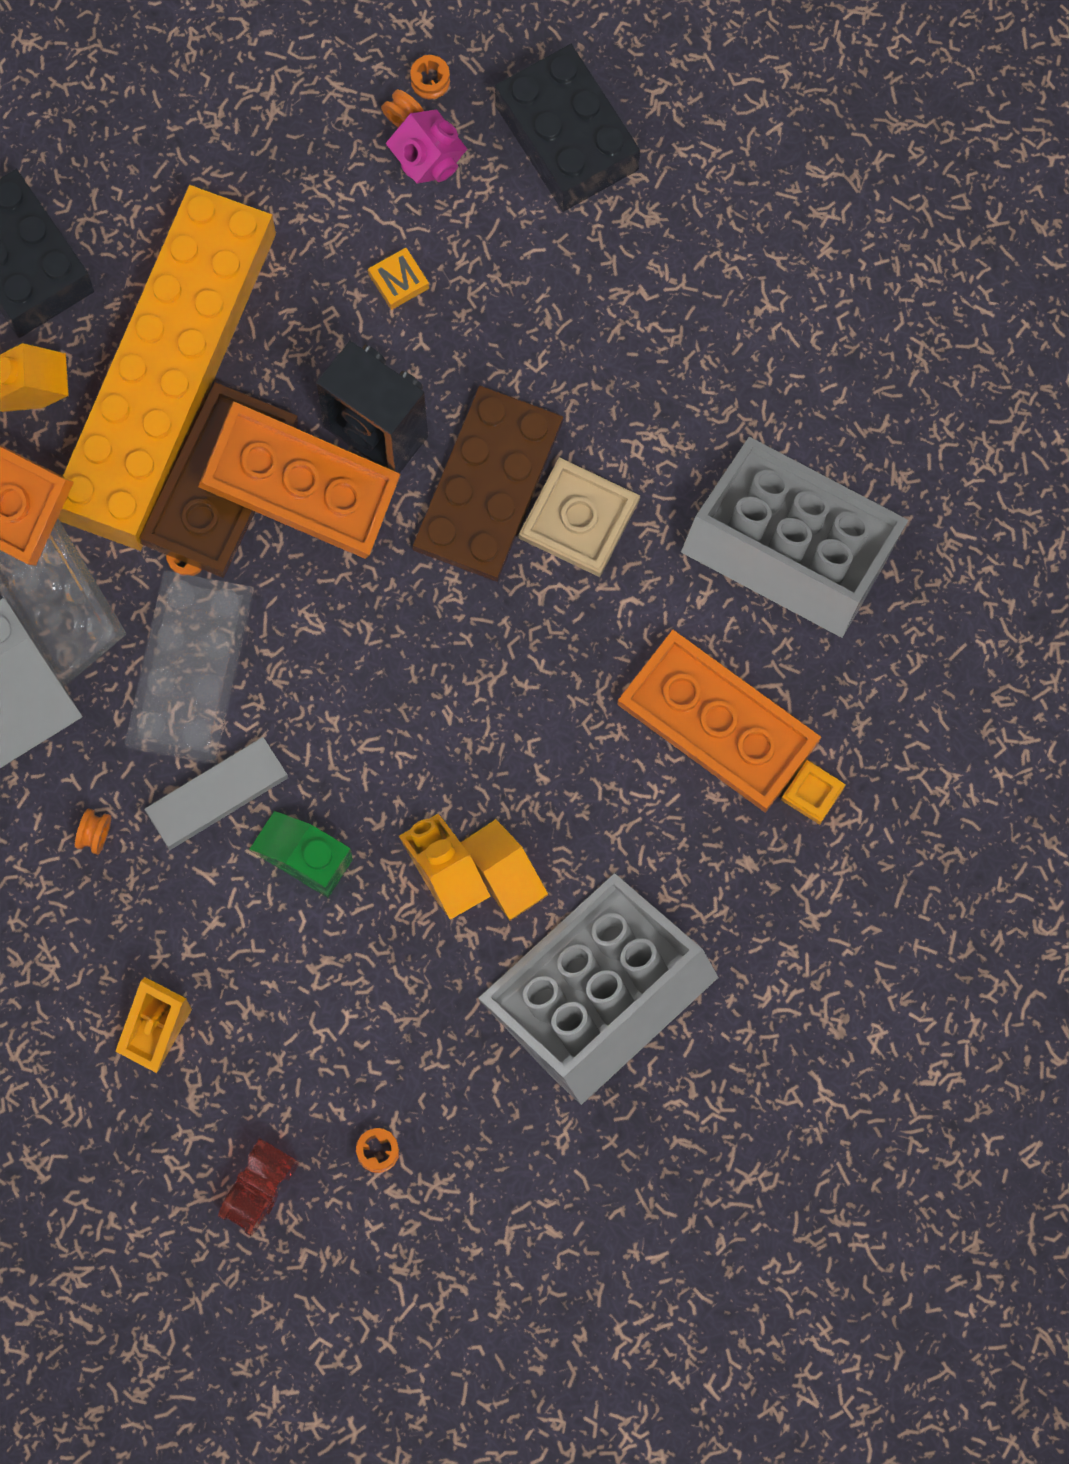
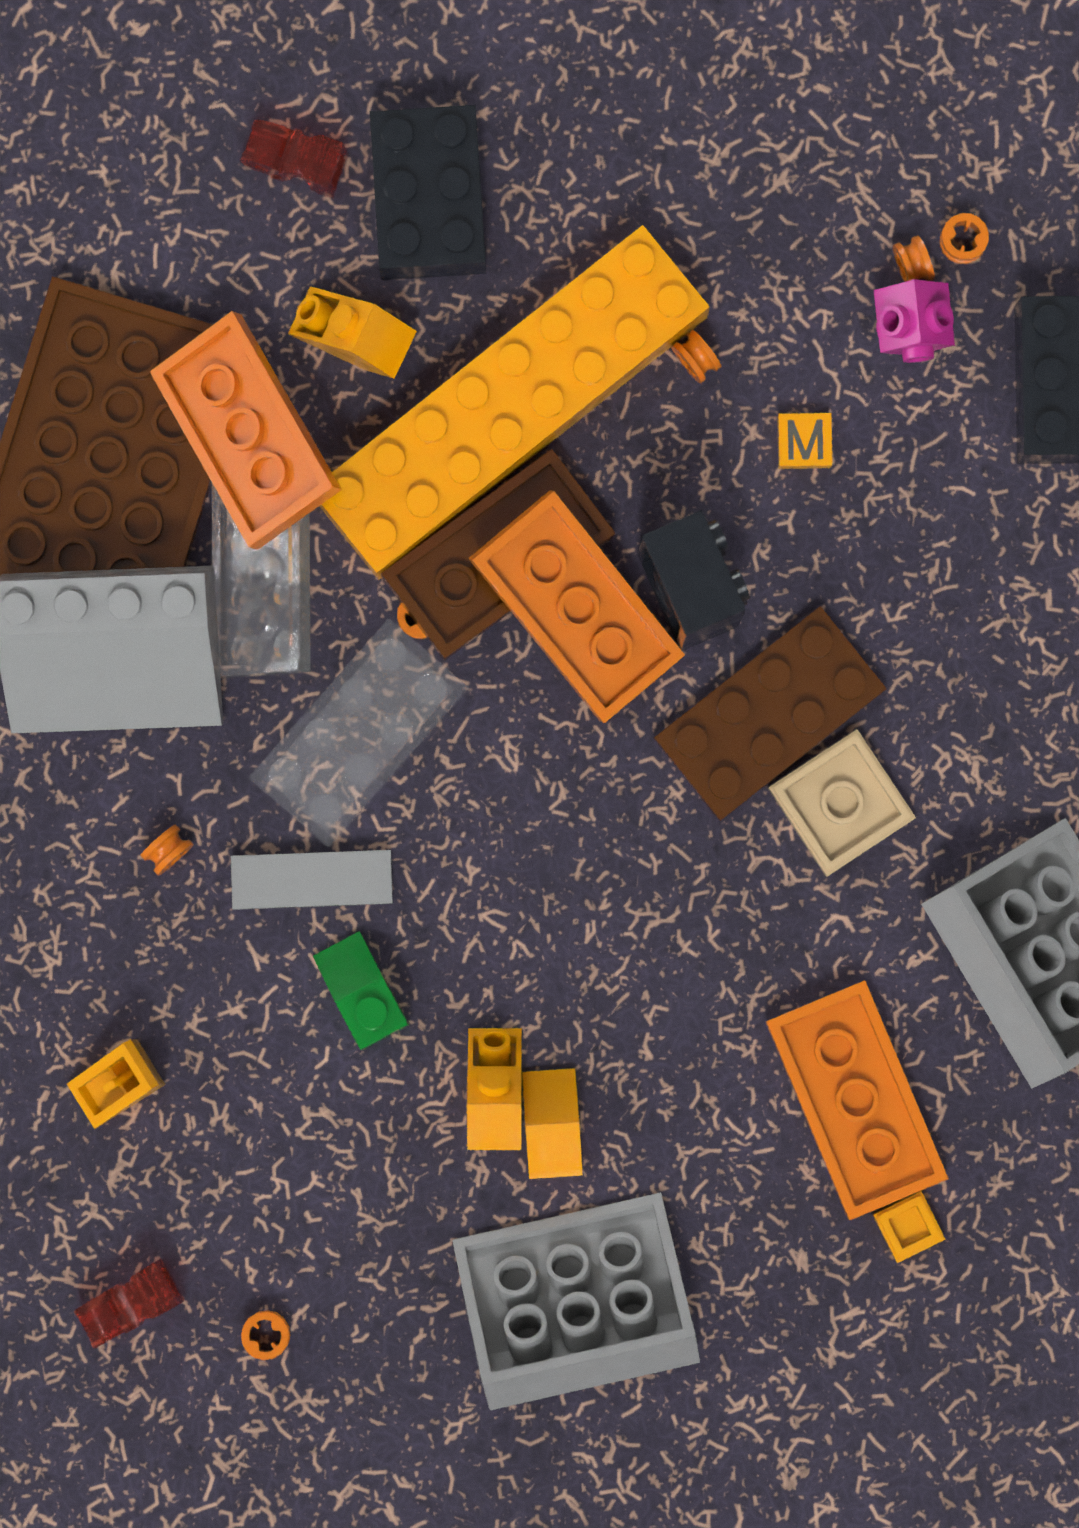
camera: 30 degrees right, 10 degrees up
(283, 261) = (696, 356): none -> orange bush

